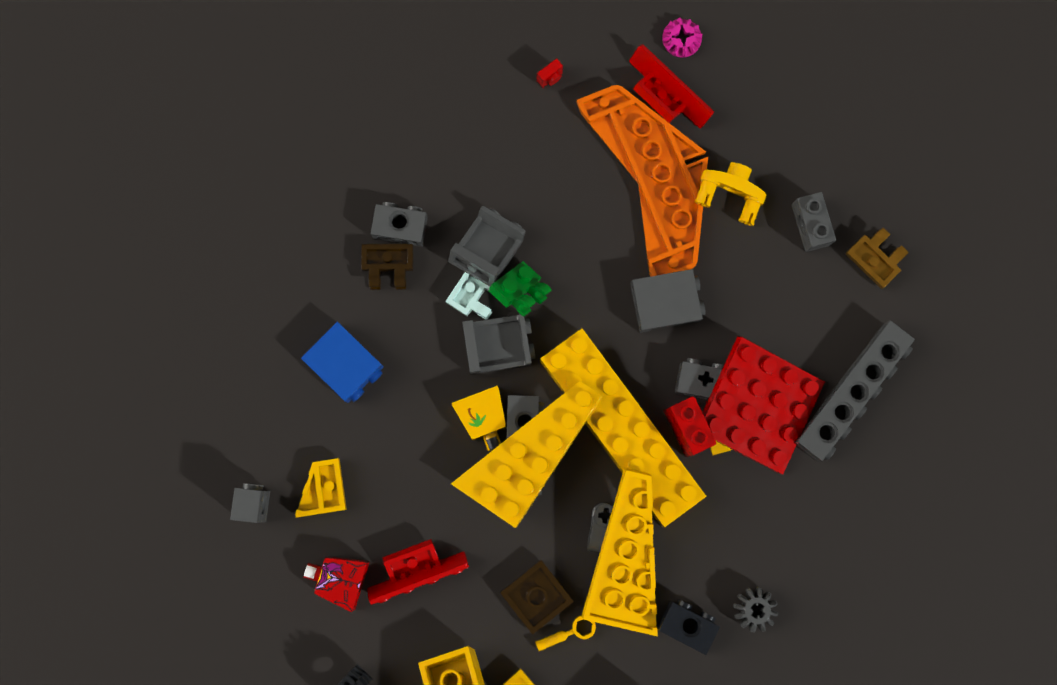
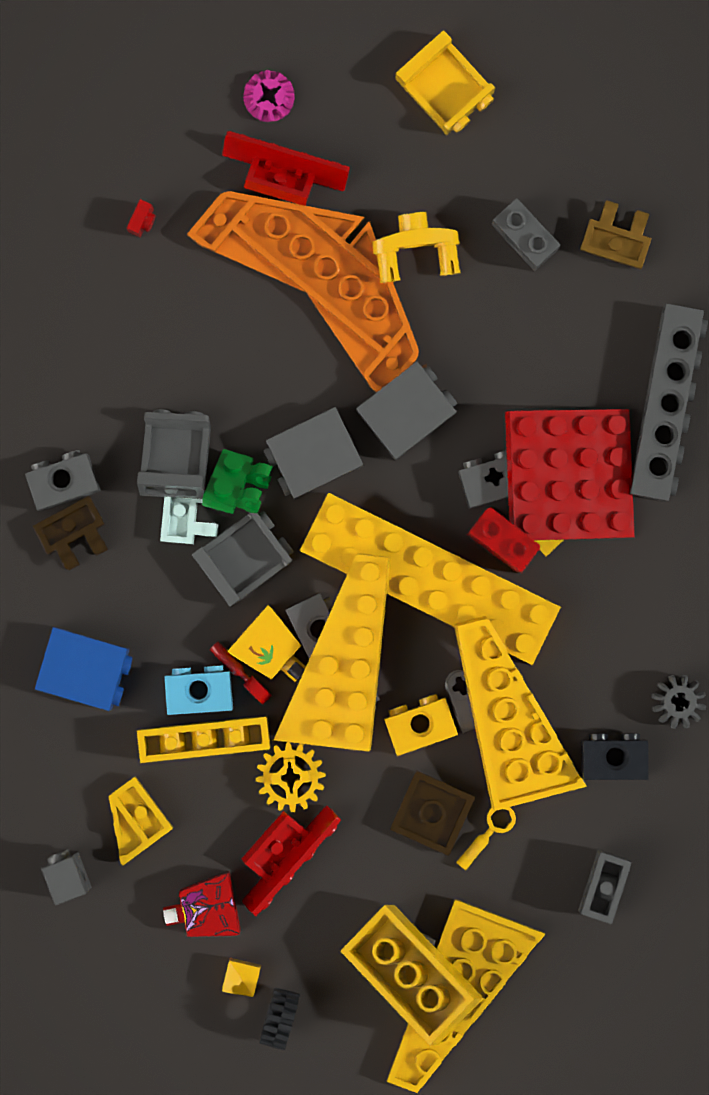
camera: 20 degrees left, 5 degrees up
(337, 644) = (241, 977): none -> yellow slope
(400, 421) = (182, 702): none -> medium azure brick
(401, 457) = (203, 739): none -> yellow brick
(456, 436) = (237, 669): none -> red piece
(461, 522) = (306, 775): none -> yellow gear
(575, 536) = (440, 724): none -> yellow brick
(585, 296) = (313, 453): none -> dark grey panel
(808, 91) = (445, 84): none -> yellow panel

